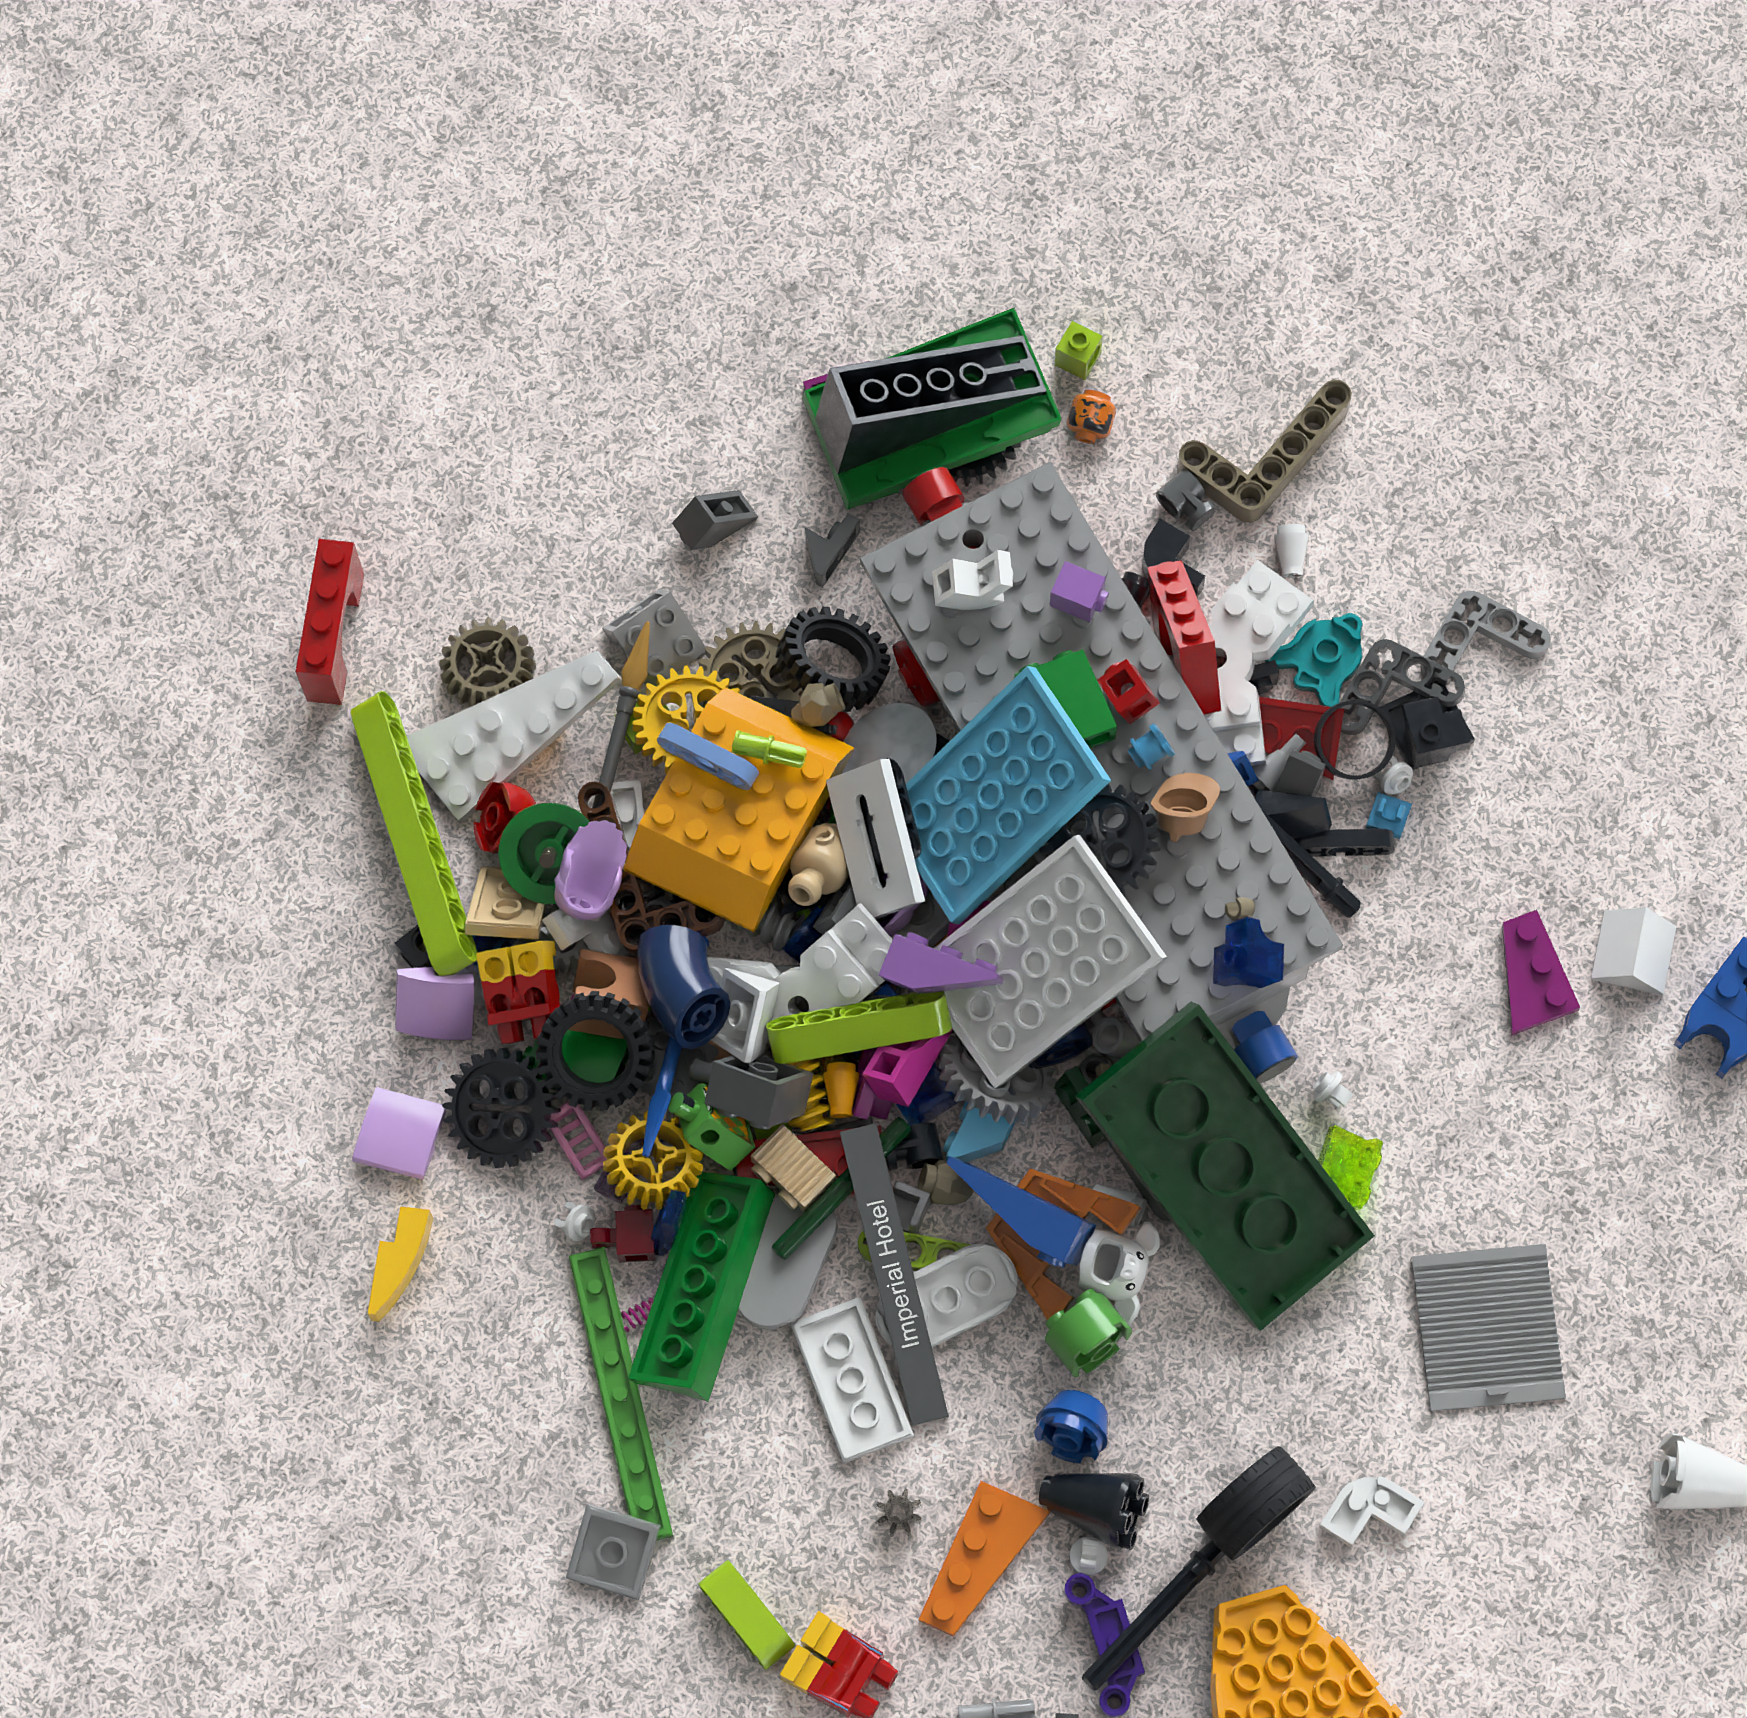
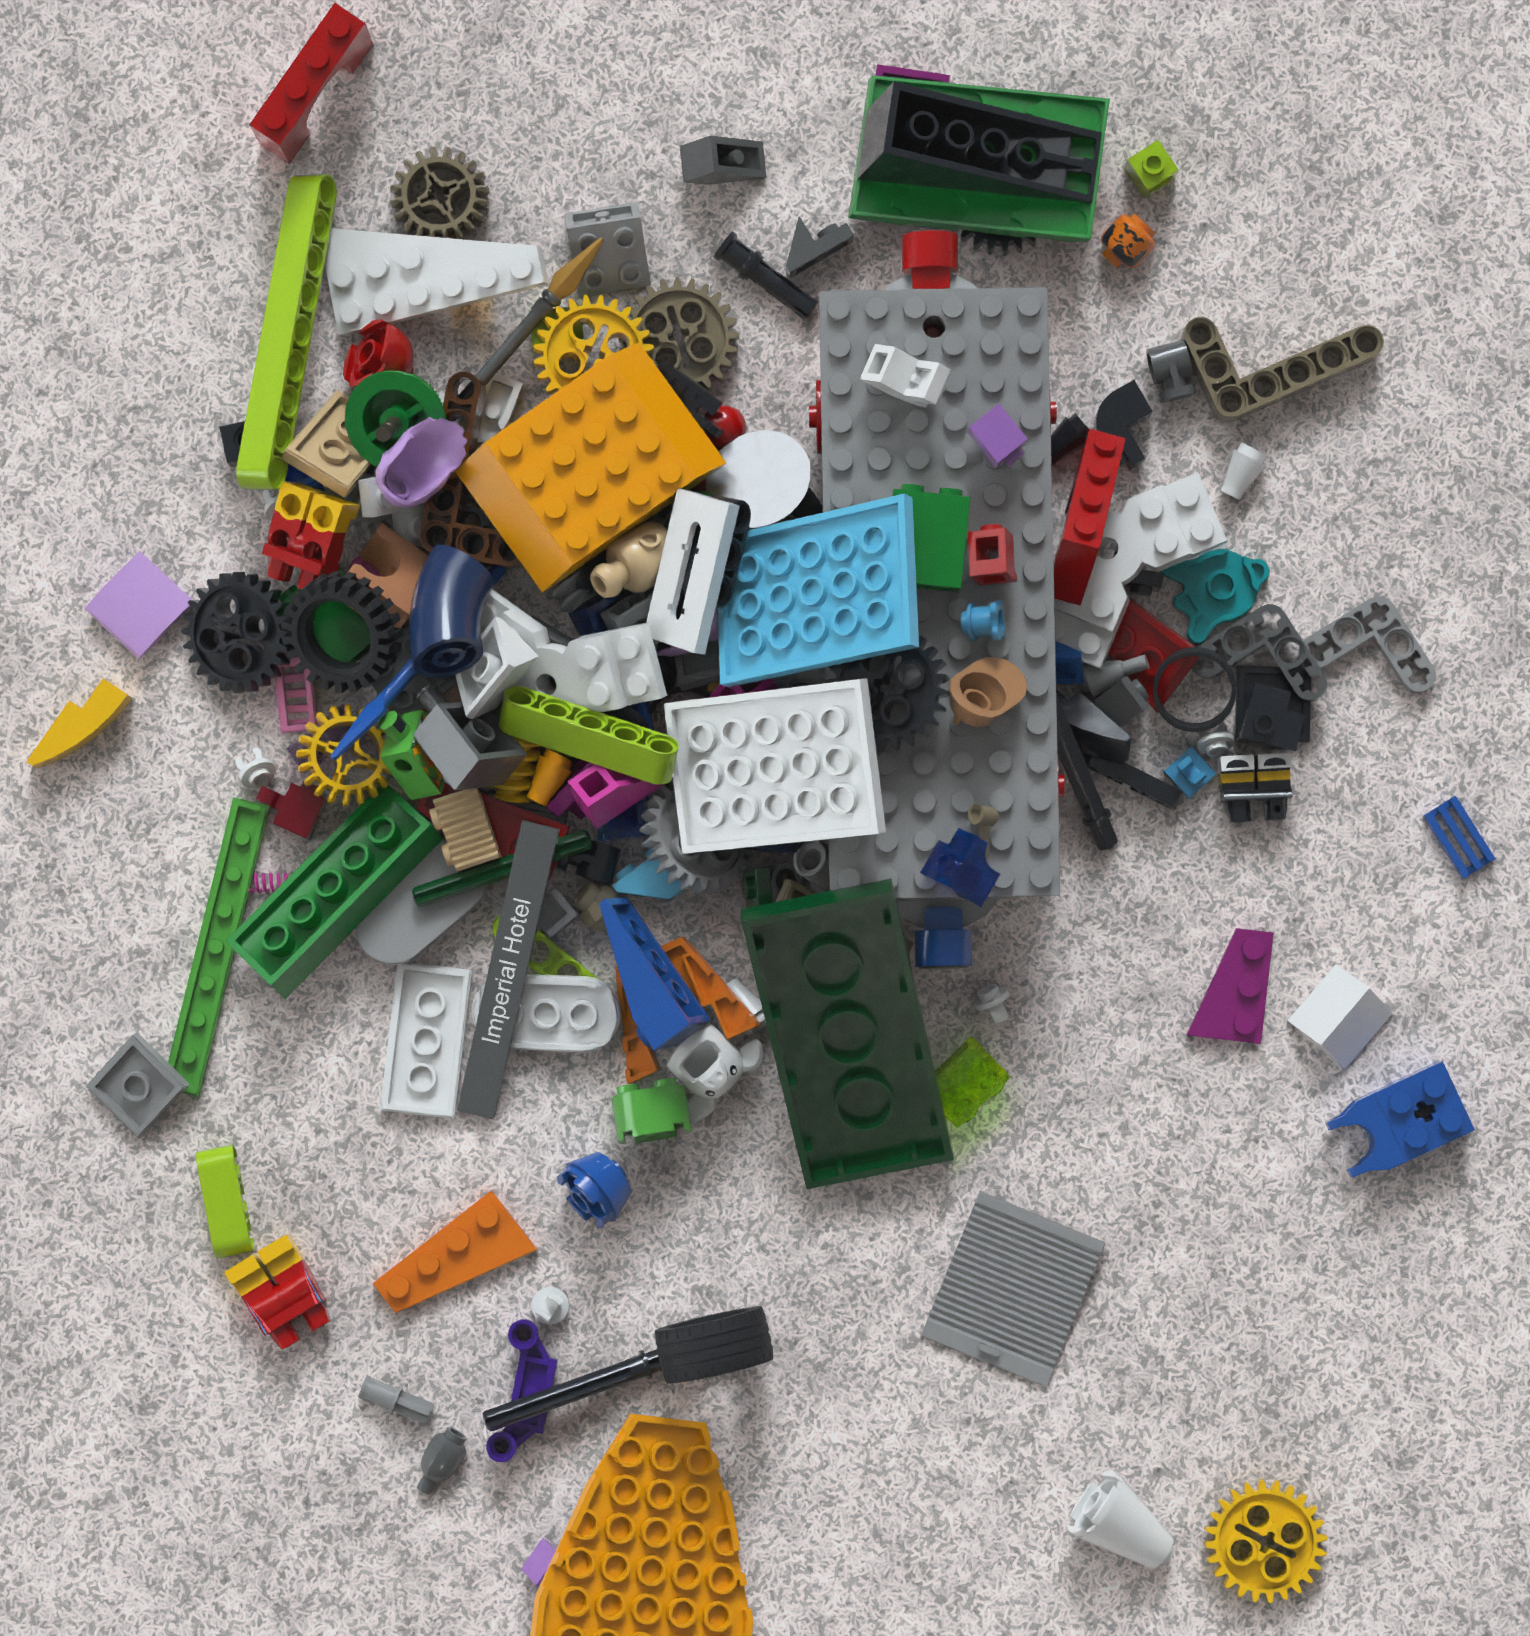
camera: 25 degrees right, 15 degrees up
(434, 1004) = (224, 505): lavender slope -> none
(669, 1222) = (332, 819): clear blue slope -> none
(707, 756) = (577, 414): medium blue beam -> none
(768, 749) = (637, 436): lime axle -> none
(785, 590) = (752, 267): none -> black pin
(818, 705) = (713, 407): dark tan rock -> none
(848, 635) = (785, 339): black tyre -> none
(903, 1503) = (411, 1174): clear smoke gear -> none
(928, 970) = (669, 718): medium lavender slope -> none
(1098, 1504) = (580, 1267): black cone -> none
(1369, 1498) = (822, 1384): white plate -> none
(1446, 792) = (1271, 785): none -> black hips
(1652, 742) = (1472, 831): none -> blue tile

